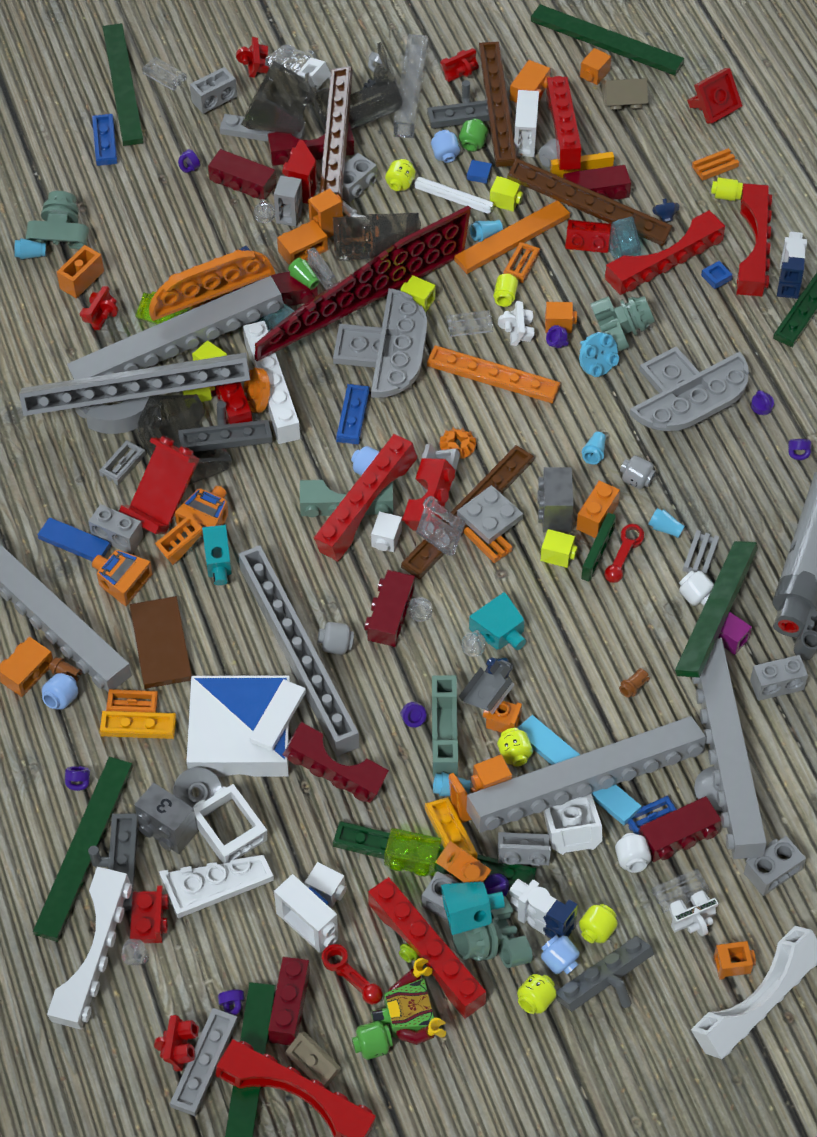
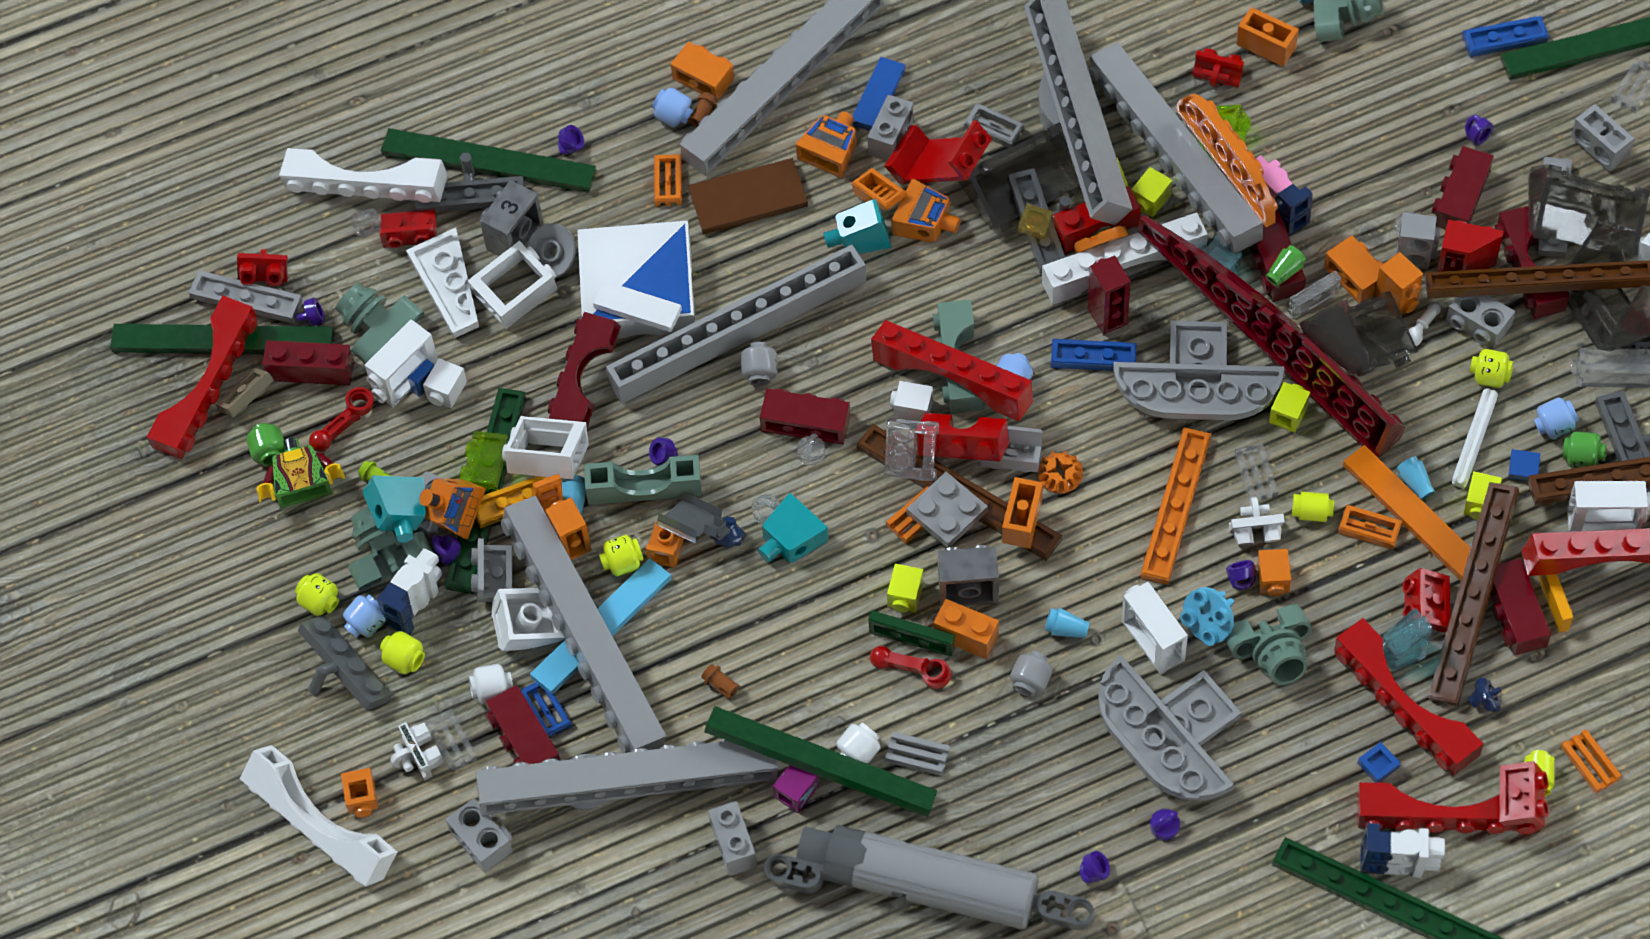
camera: 90 degrees right, 5 degrees up
(138, 724) = (640, 188): light orange tile -> none
(233, 430) = (1035, 221): none -> clear yellow plate
(251, 938) = (365, 311): none -> sand green beam
(314, 383) = (1108, 294): none -> dark red brick
(407, 773) = (551, 432): none -> white window
(453, 977) = (330, 513): red arch -> none
(504, 457) = (1022, 512): none -> orange brick
(620, 371) = (1154, 627): none -> white window
(665, 523) = (956, 708): medium azure cone -> none
(754, 188) = (1523, 794): none -> bracket

